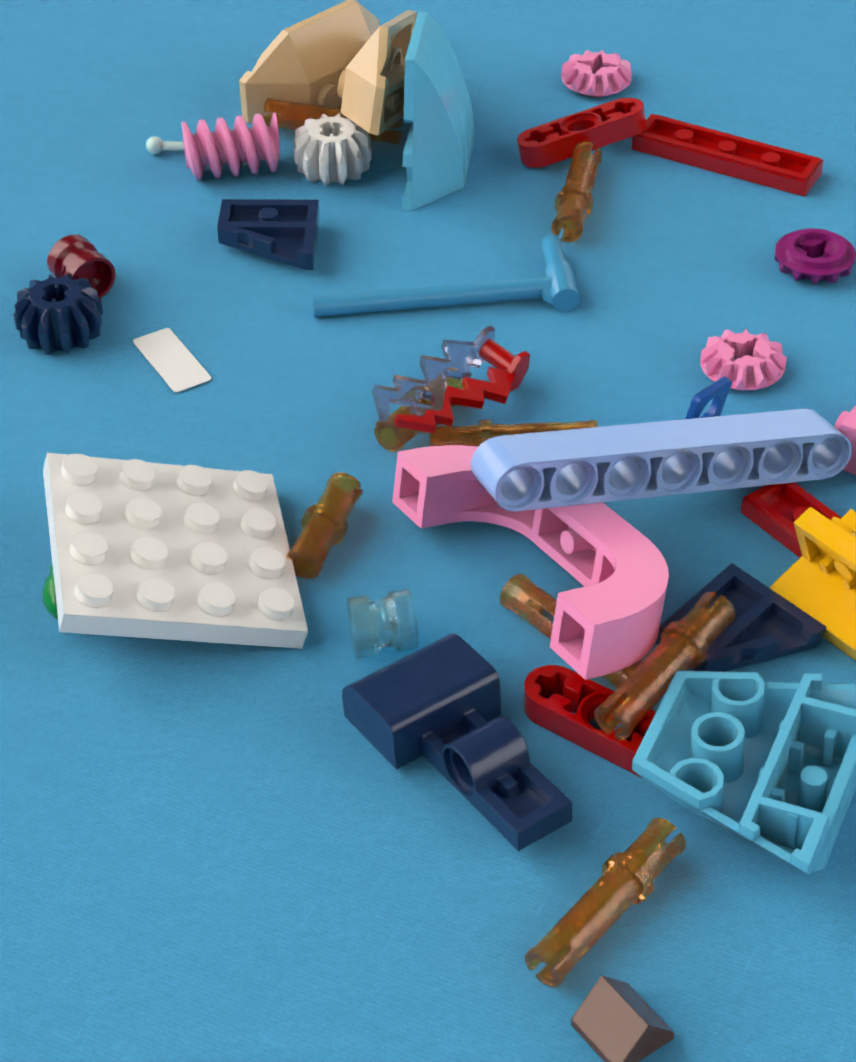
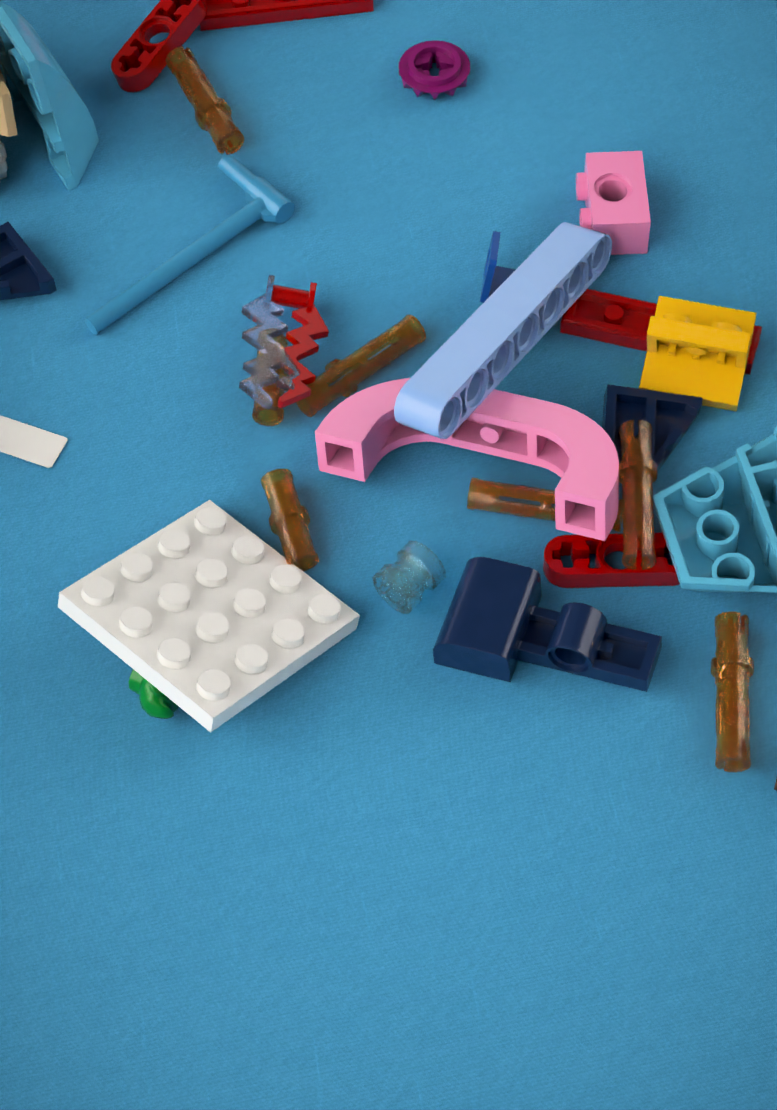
camera: 35 degrees left, 15 degrees up
(758, 361) = (476, 207): bright pink gear -> none

